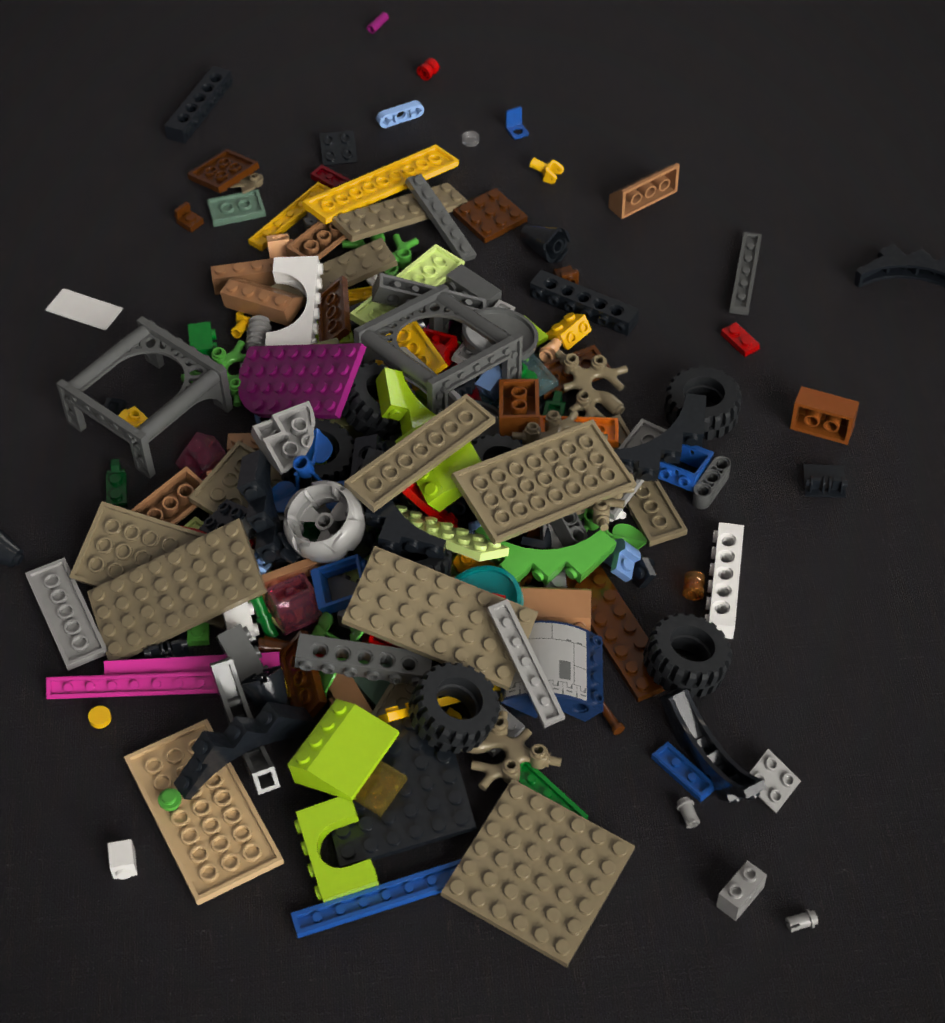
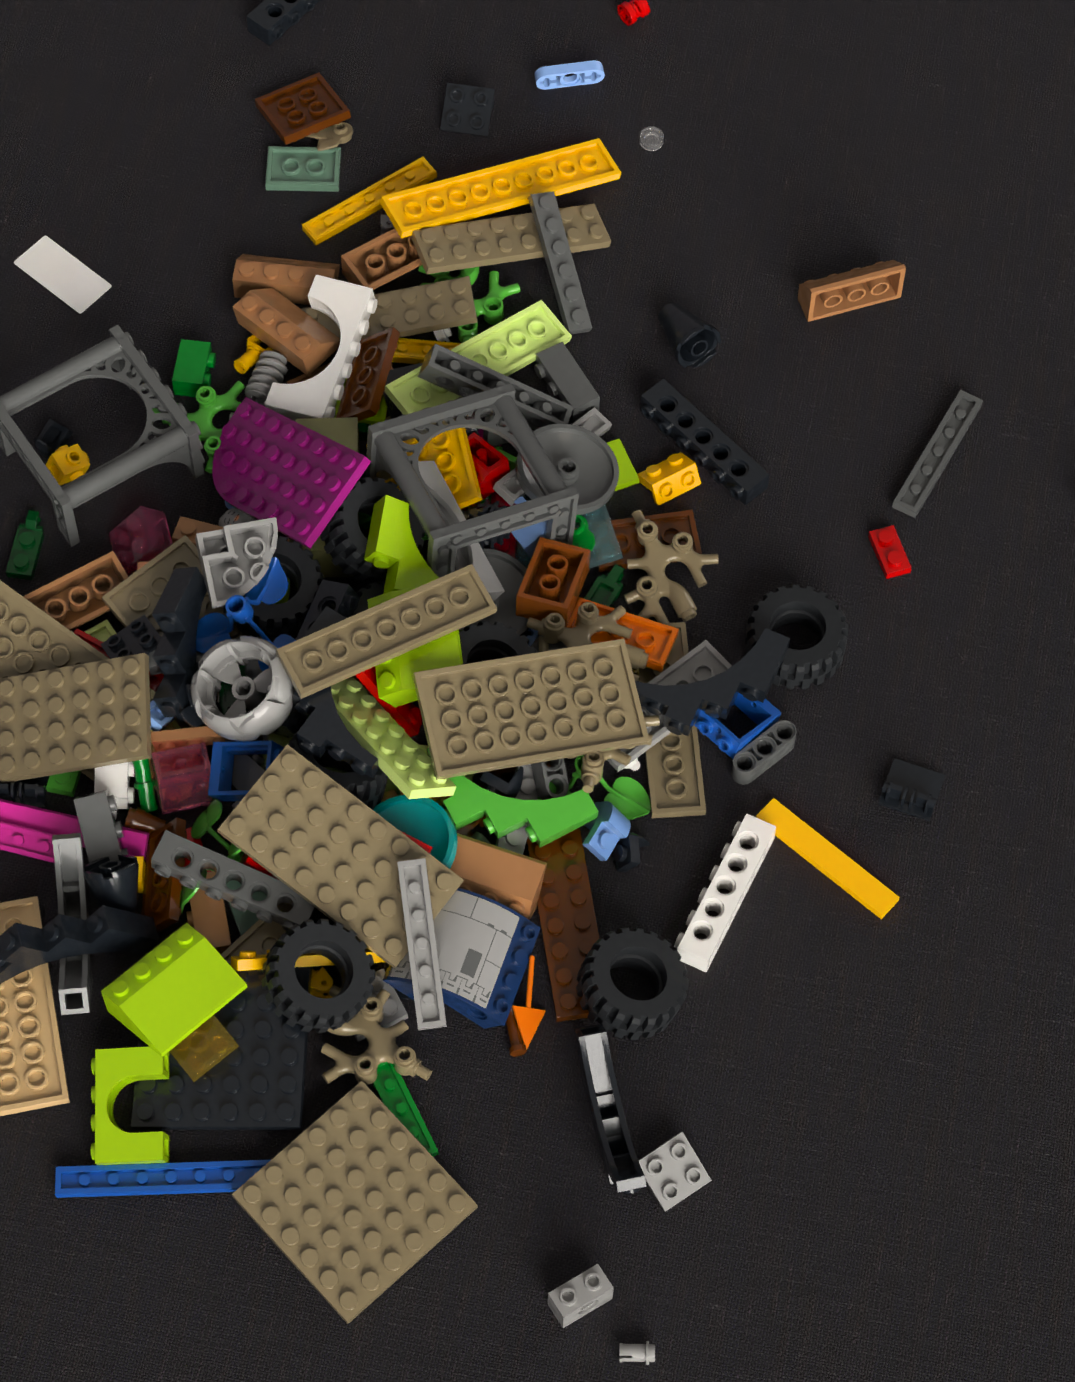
camera: 15 degrees right, 10 degrees up
(187, 218) = (235, 169): reddish brown bracket -> none
(277, 245) = (334, 244): light nougat brick -> none
(328, 177) = (441, 156): dark red plate -> none
(490, 215) = (633, 270): reddish brown plate -> none
(514, 122) = (719, 127): blue bracket -> none
(548, 170) = (734, 216): yellow piece -> none
(548, 351) = (633, 501): light nougat cone -> none
(567, 273) = (698, 393): reddish brown bracket -> none
(616, 703) = (527, 1017): none -> orange piece
(683, 771) = (575, 1127): blue tile -> none
(688, 812) = (558, 1180): light grey pin -> none
(694, 585) = (684, 888): clear orange wheel -> none
(790, 541) = (829, 859): none -> yellow tile
(824, 415) = (945, 699): dark orange brick -> none

